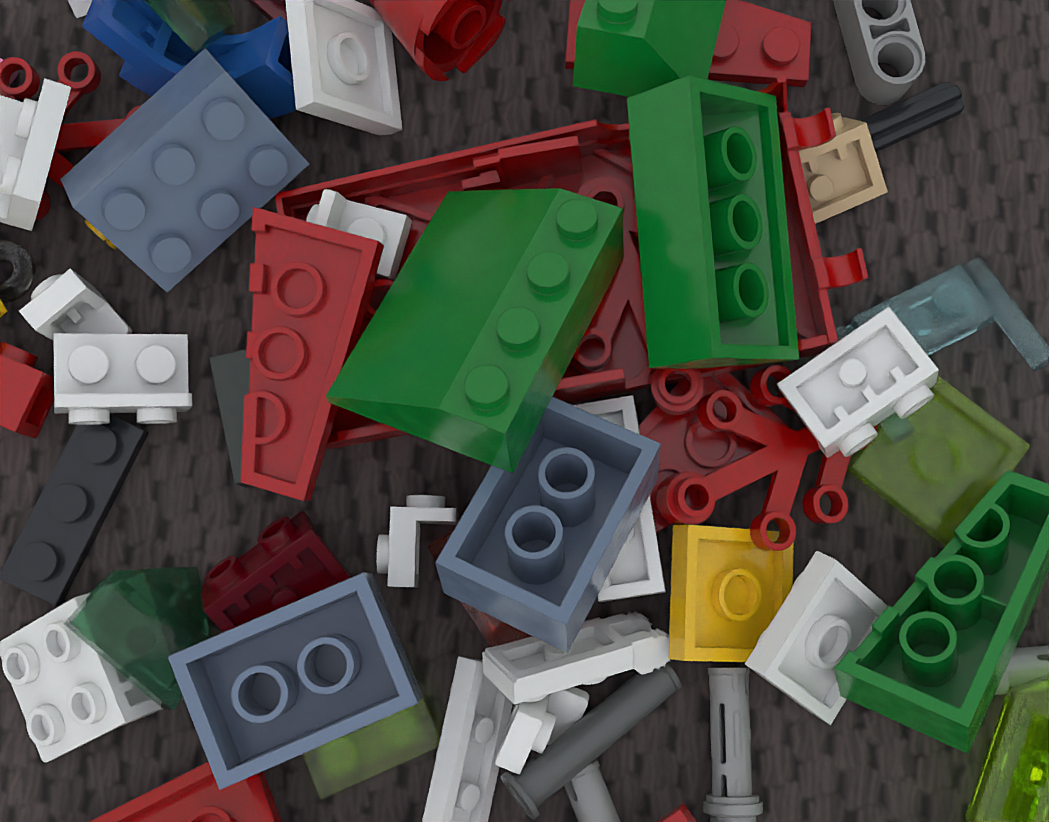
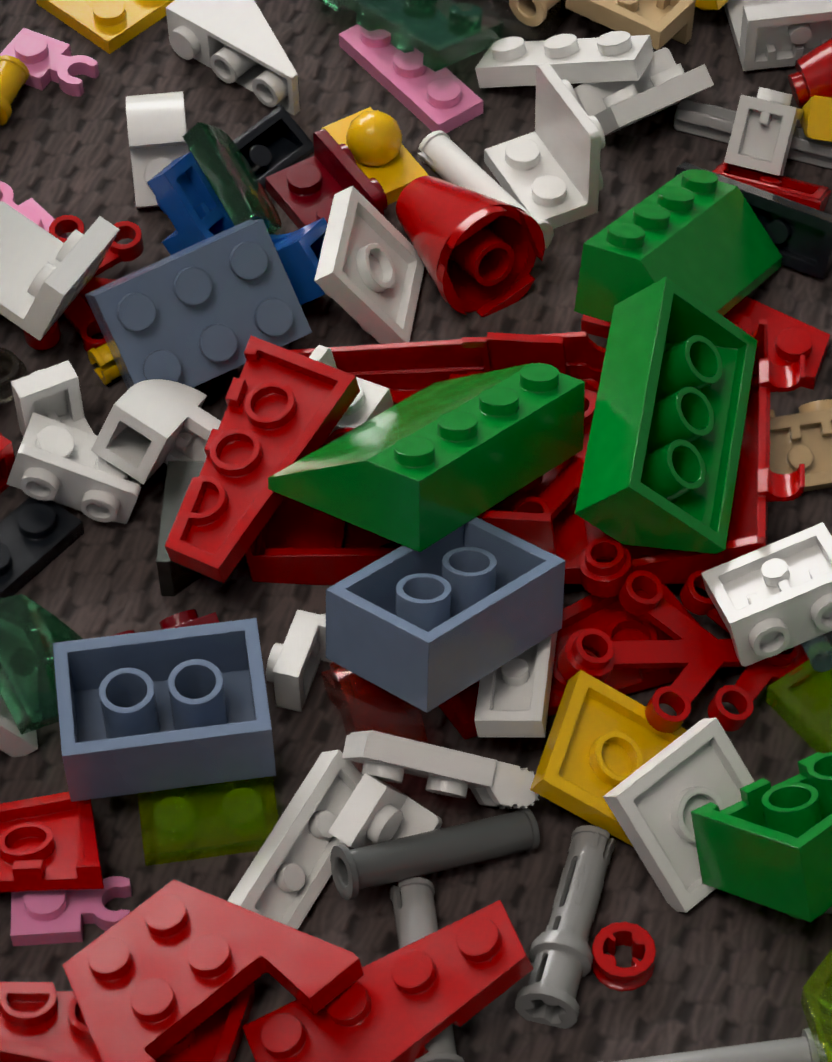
camera: 20 degrees right, 30 degrees down
(184, 315) = (155, 425): none -> white brick
(797, 770) = (641, 946): none -> red bush

